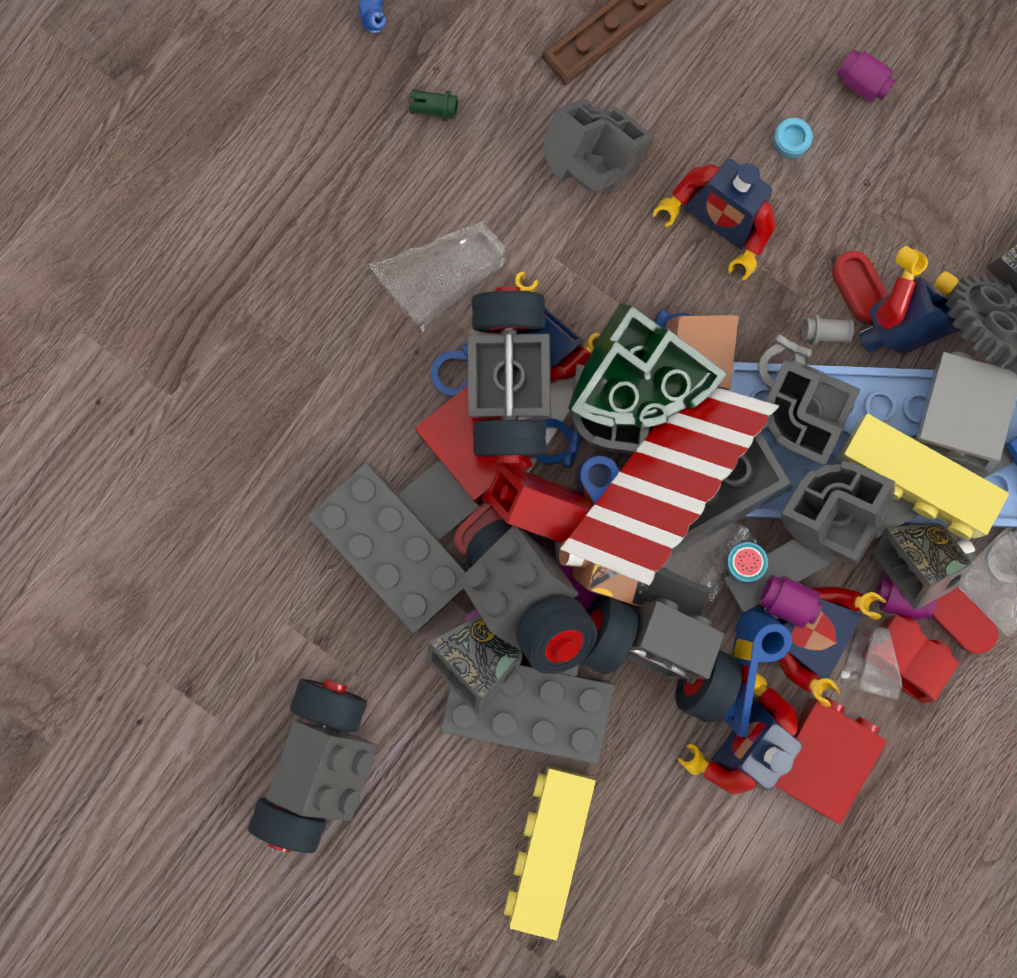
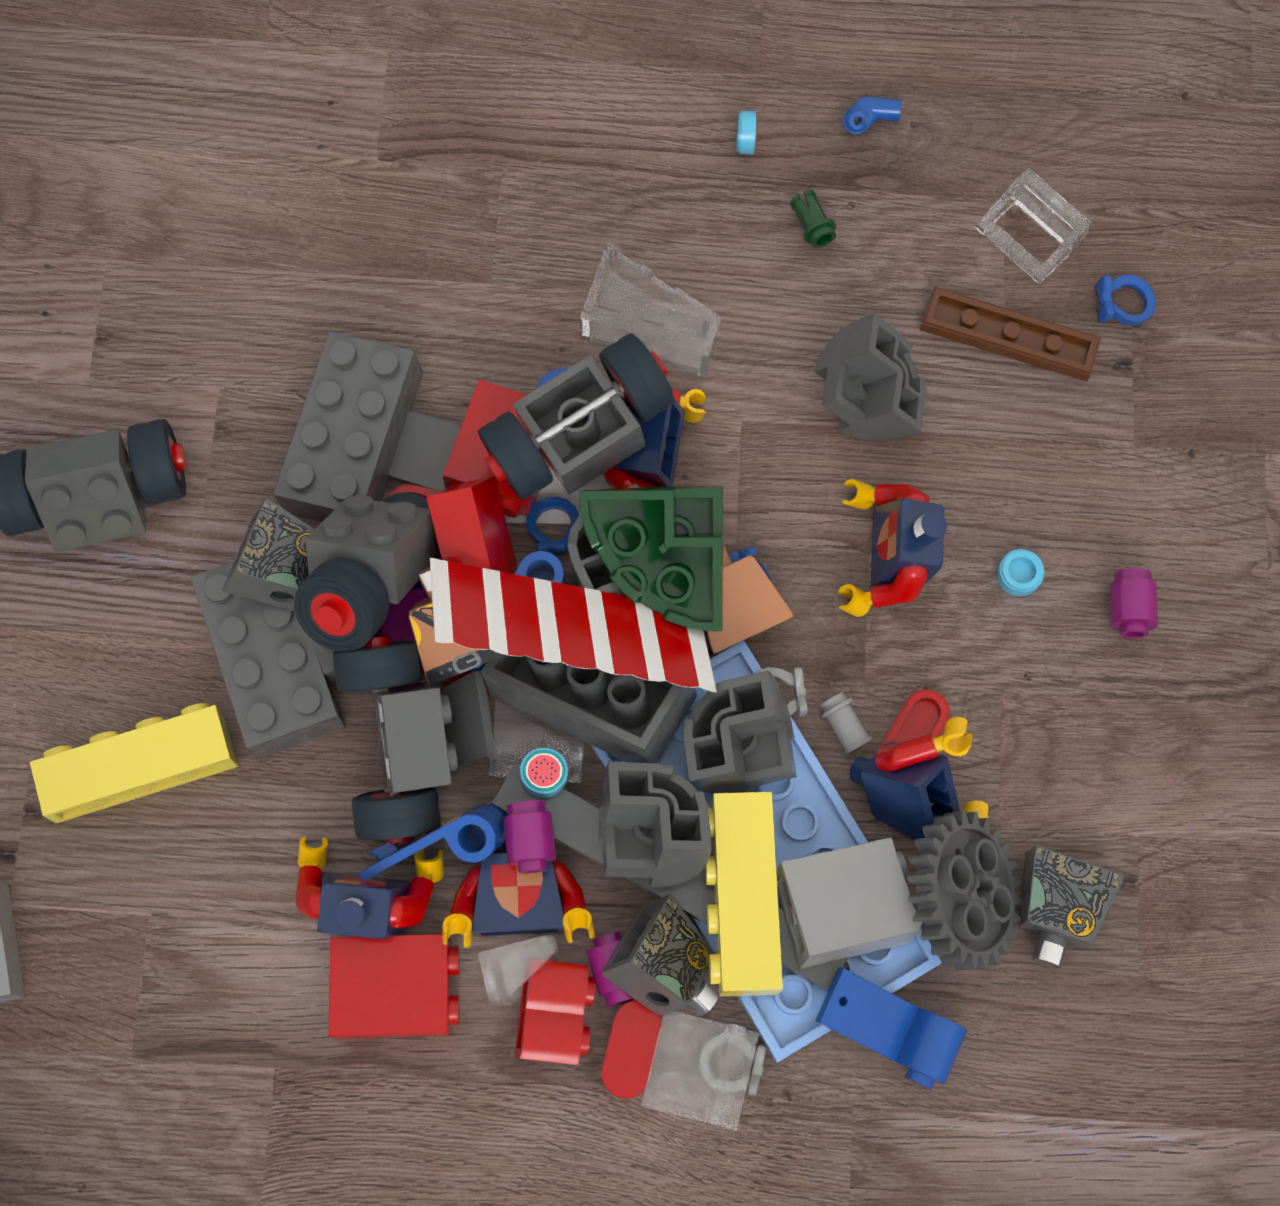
camera: 60 degrees right, 10 degrees down
(333, 106) = (746, 132): none -> medium azure tile

